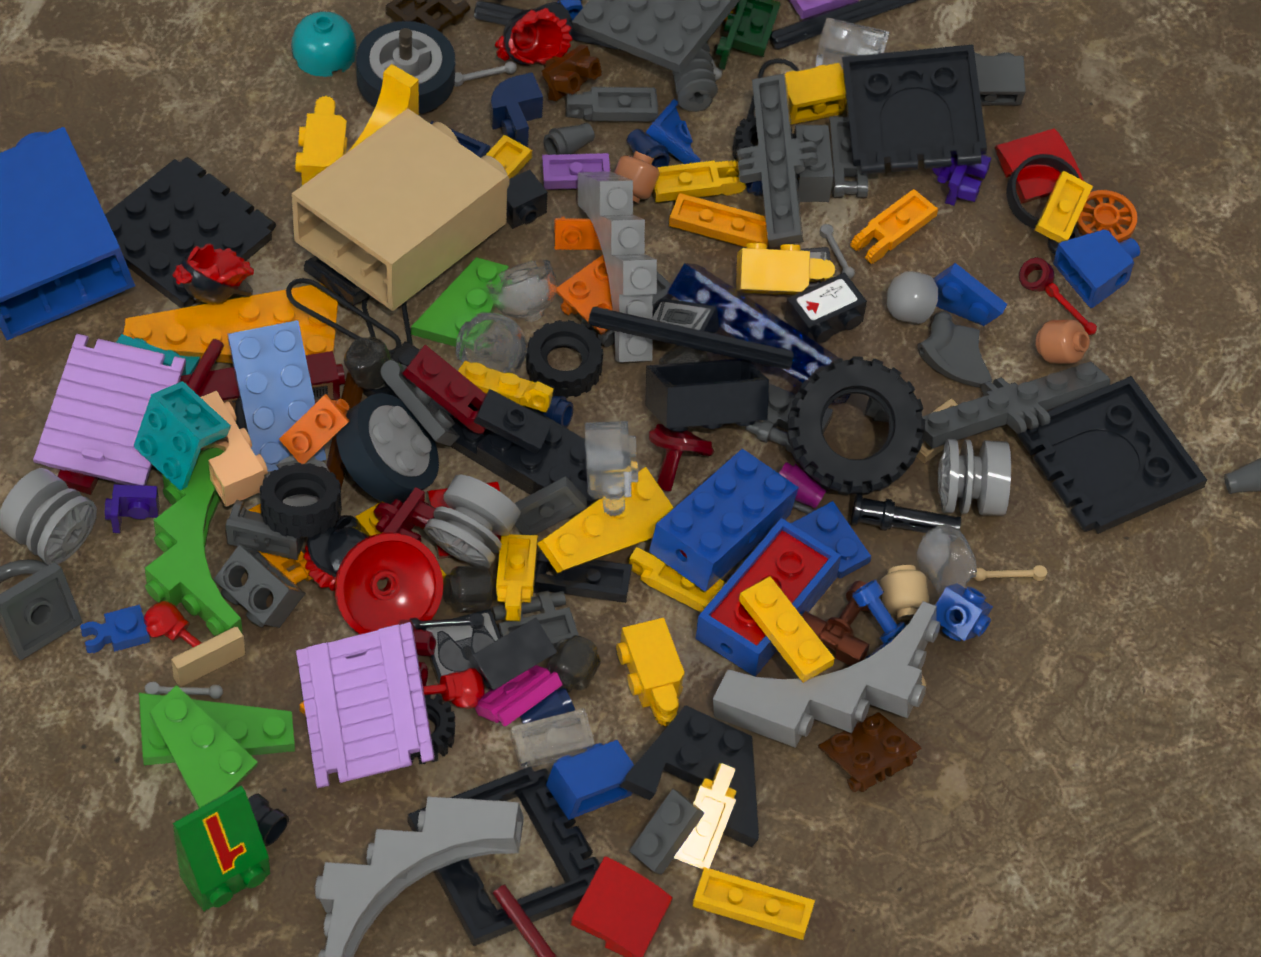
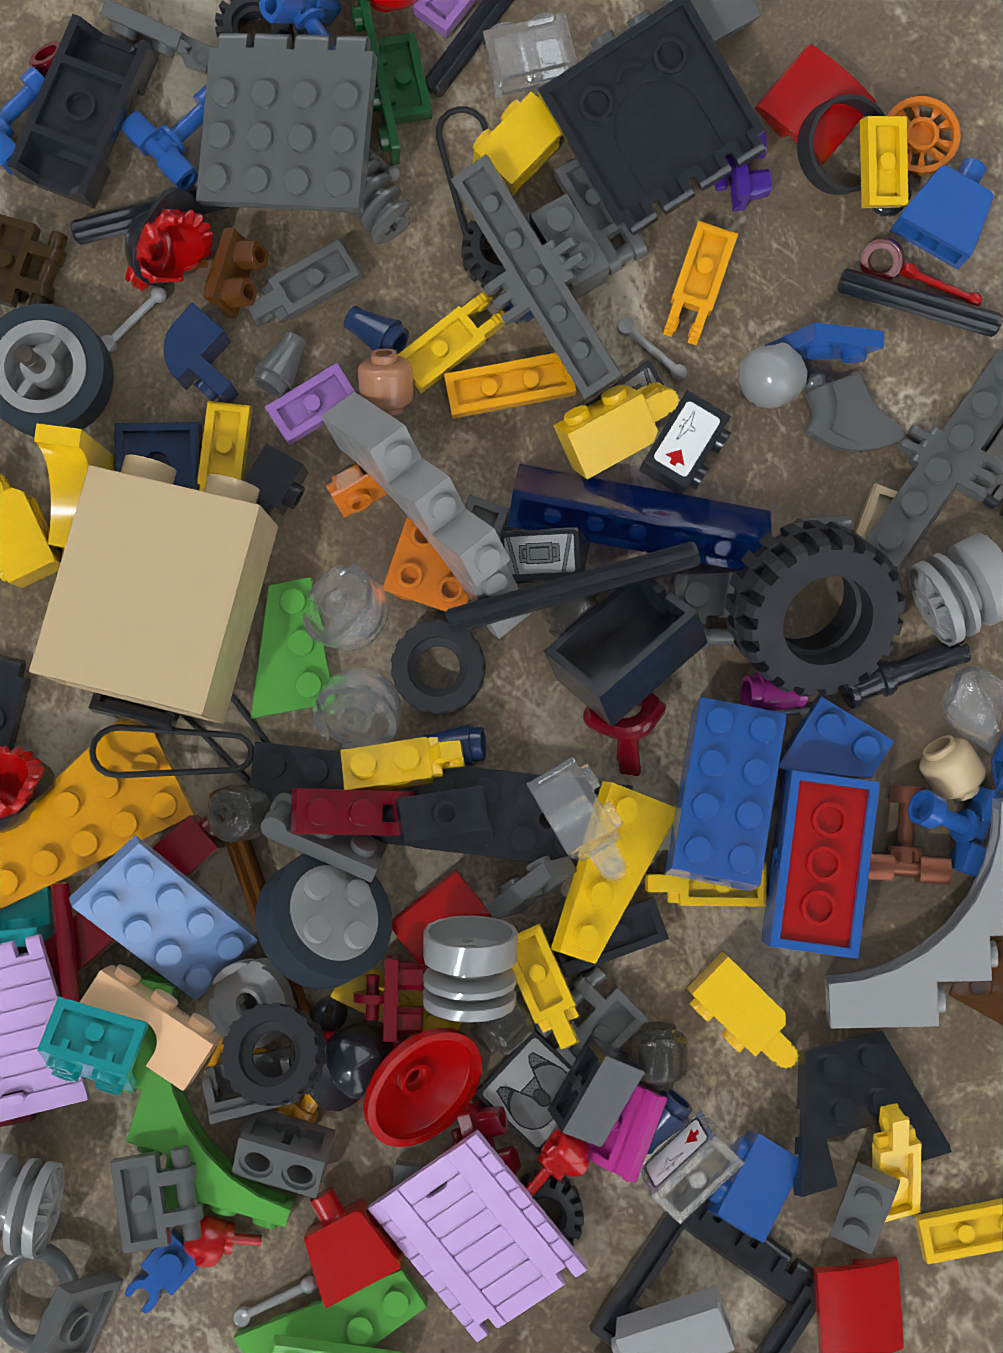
camera: 20 degrees left, 30 degrees up
(133, 502) = (92, 1115): dark purple bracket -> none
(143, 551) = (142, 1199): none -> dark grey plate
(208, 656) = (278, 1259): tan tile -> none
(263, 673) = (348, 1247): none -> red torso
(315, 428) = (239, 951): orange hinge -> none
(476, 621) = (529, 1058): black hinge -> none
(673, 134) = (390, 291): blue tile -> none
(786, 629) = (874, 916): yellow plate -> none
(1040, 303) = (919, 302): none -> black axle
(1062, 341) = (963, 345): nougat head -> none

